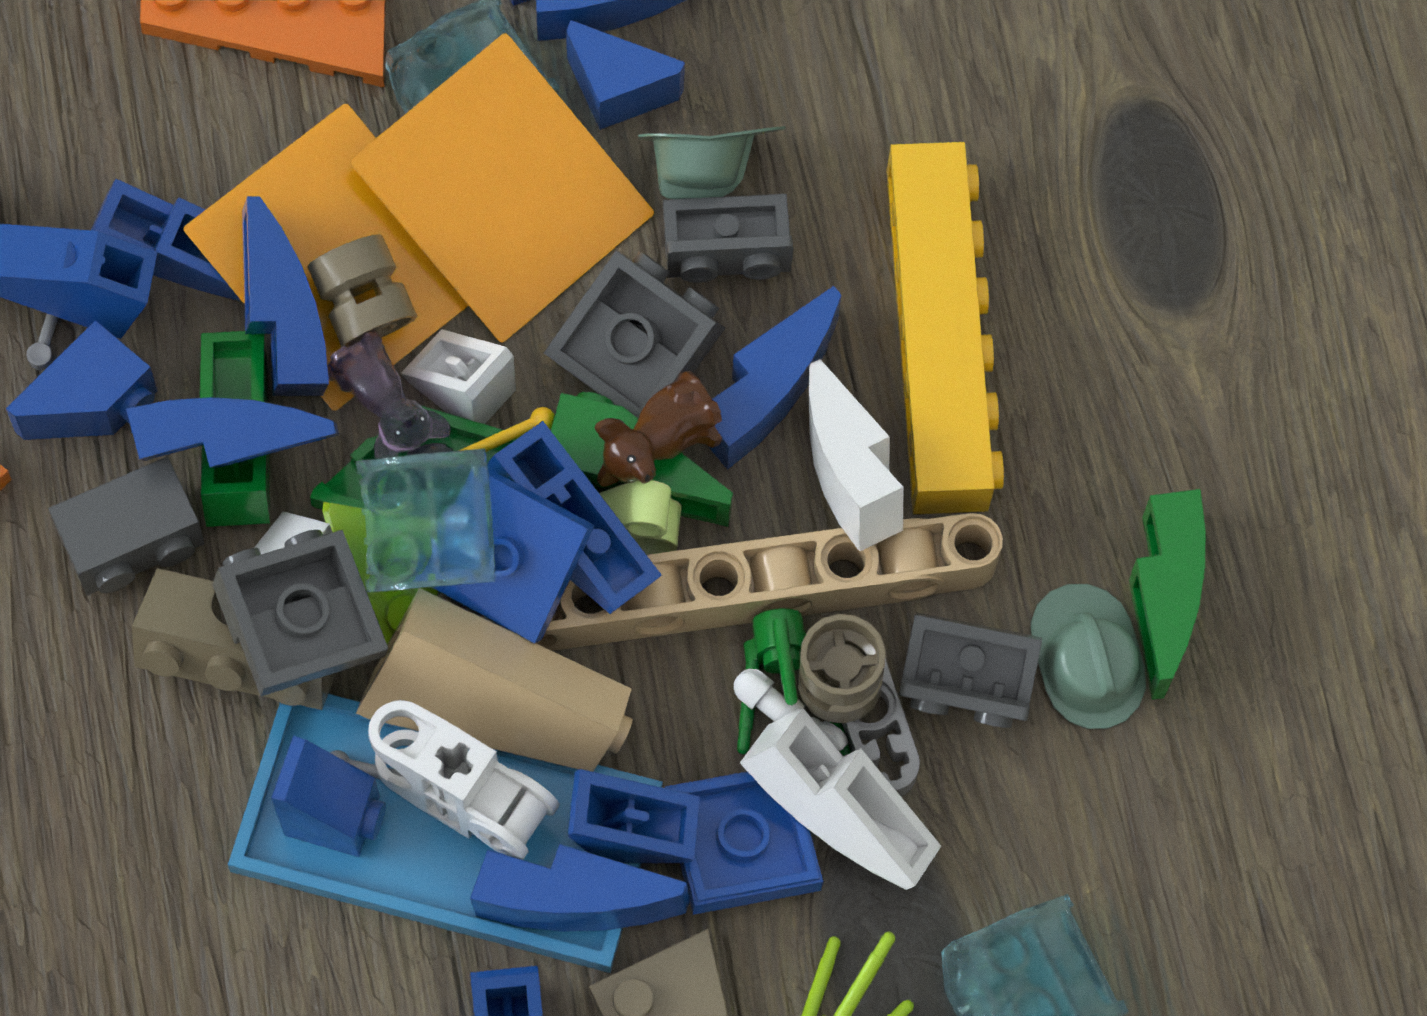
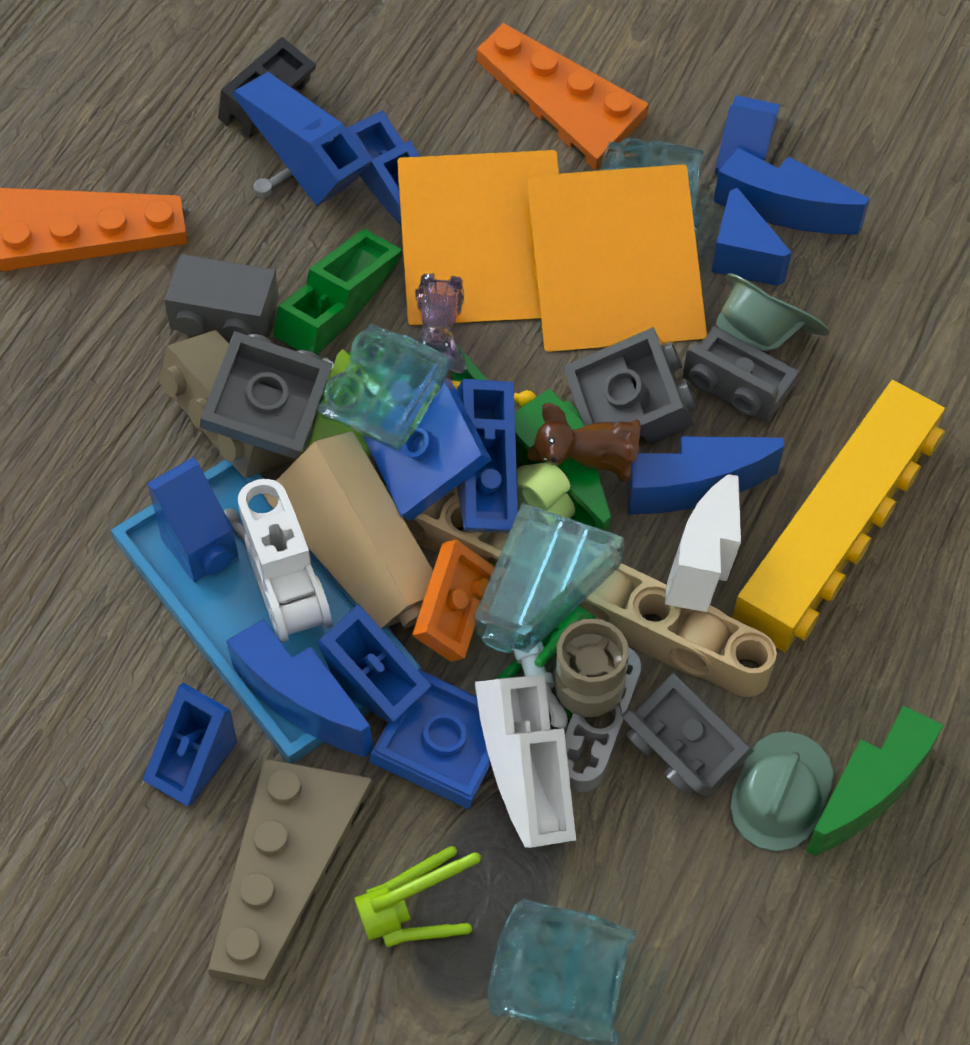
camera: 40 degrees right, 10 degrees down
(84, 390) = (266, 215): blue slope -> none
(226, 427) = (317, 271): blue slope -> none
(281, 305) = (416, 234): blue slope -> none
(353, 271) = (475, 253): dark tan wheel -> none
(463, 375) = (503, 351): white slope -> none
(656, 677) = (452, 600): none -> orange plate
(726, 610) = (543, 577): none -> clear light blue slope

